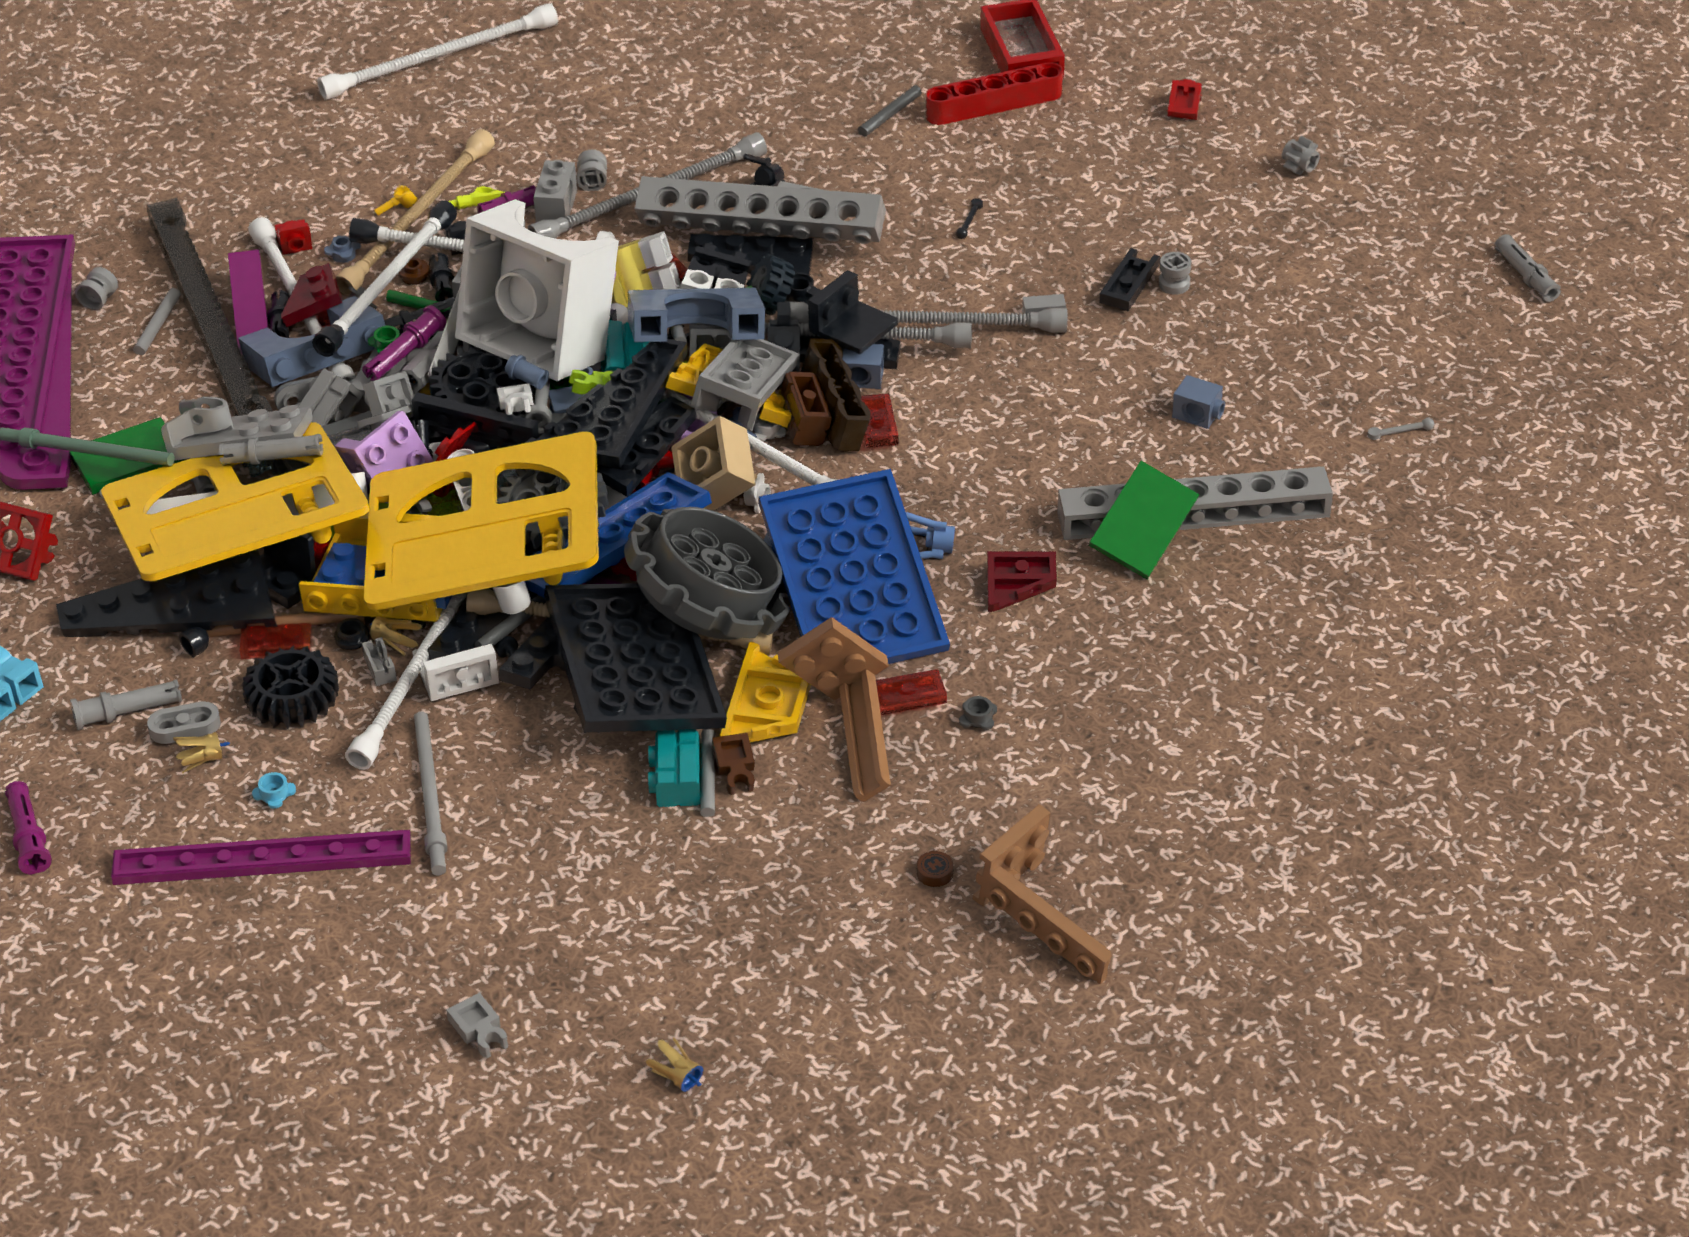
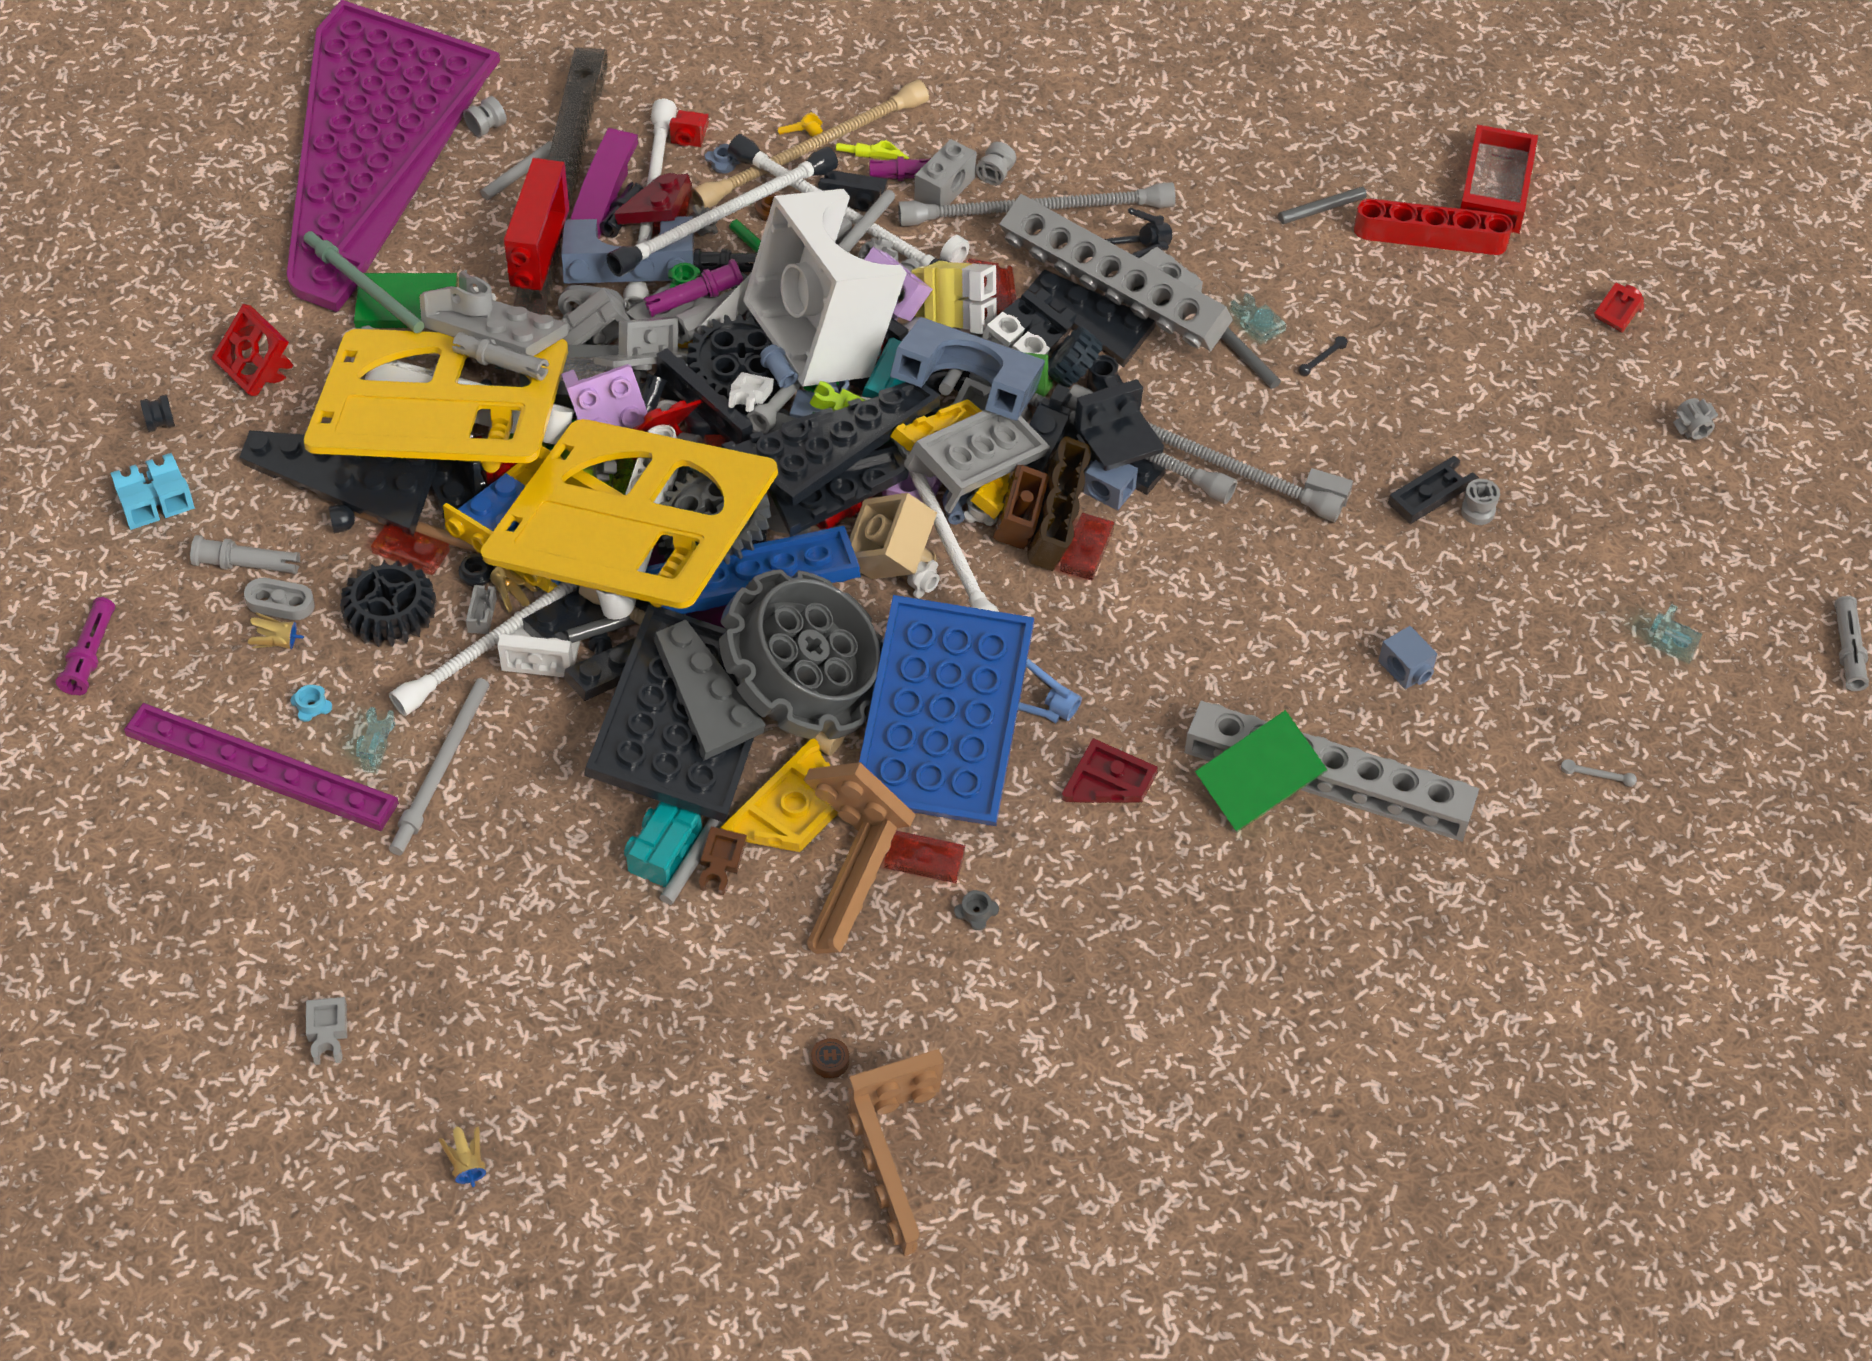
camera: 25 degrees right, 10 degrees up
(226, 340) = (536, 224): none -> red piece
(358, 798) = (374, 743): none -> clear light blue plate
(651, 634) = (706, 691): none -> dark grey wing
(902, 211) = (1259, 322): none -> clear light blue plate
(912, 240) = (1250, 358): none -> dark grey bar
(1393, 311) = (1674, 637): none -> clear light blue bracket

